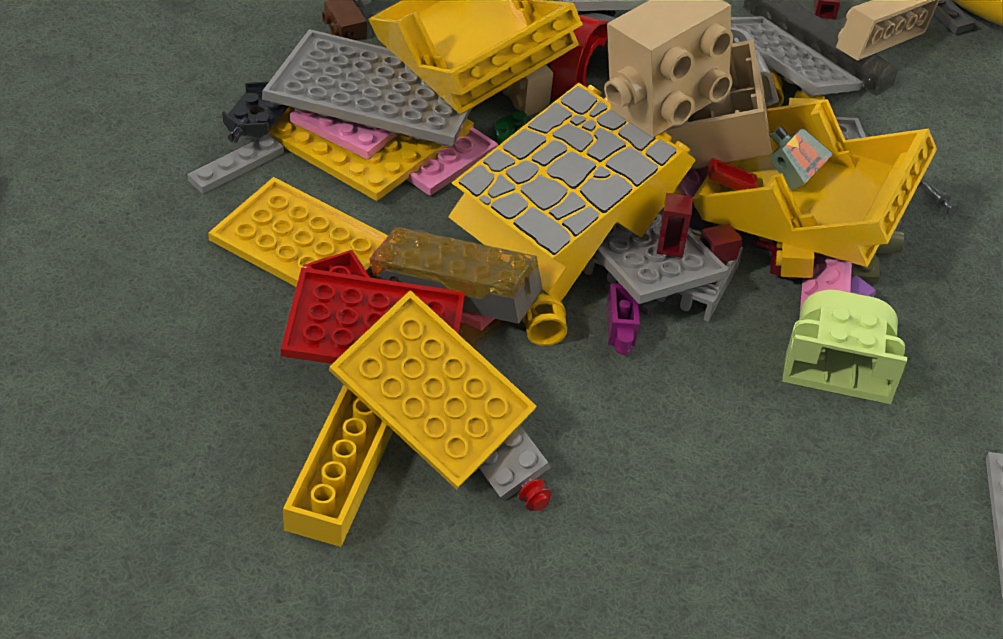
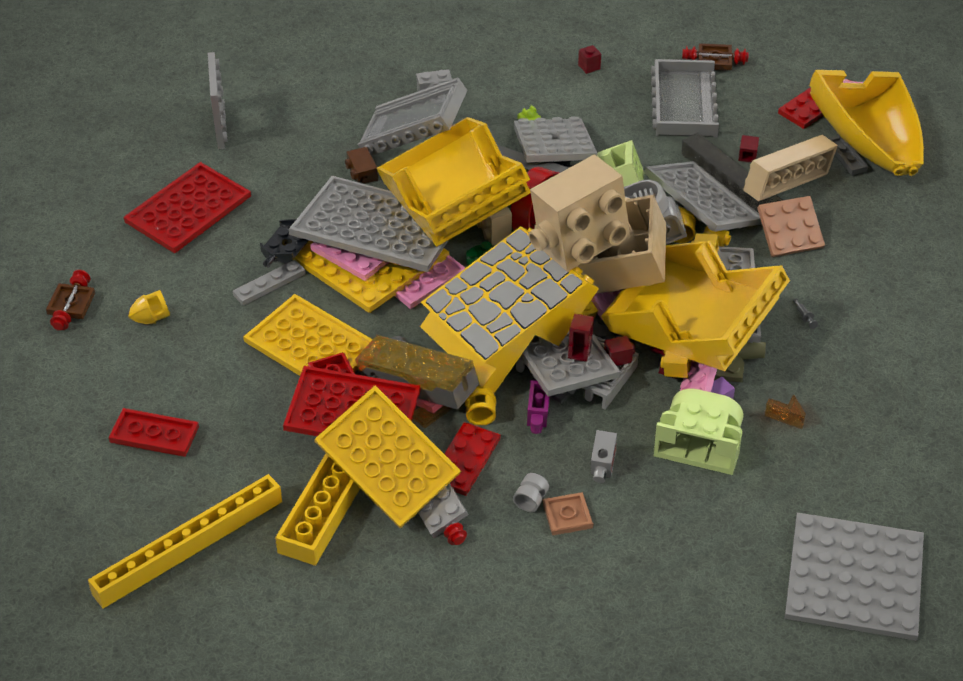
camera: 10 degrees right, 0 degrees up
(74, 197) = (149, 308): none -> yellow helmet
(91, 363) = (154, 432): none -> red plate
(116, 70) = (187, 207): none -> red plate
(144, 520) = (185, 541): none -> yellow brick
(540, 377) = (470, 453): none -> red plate
(631, 434) = (531, 492): none -> light grey wheel
(683, 462) = (567, 513): none -> nougat tile
(719, 389) = (603, 455): none -> light grey torso
(731, 175) = (633, 298): red tile -> none
(797, 156) = (684, 284): torso -> none
(900, 91) = (791, 226): none -> nougat plate
(949, 322) = (787, 413): none -> clear orange slope

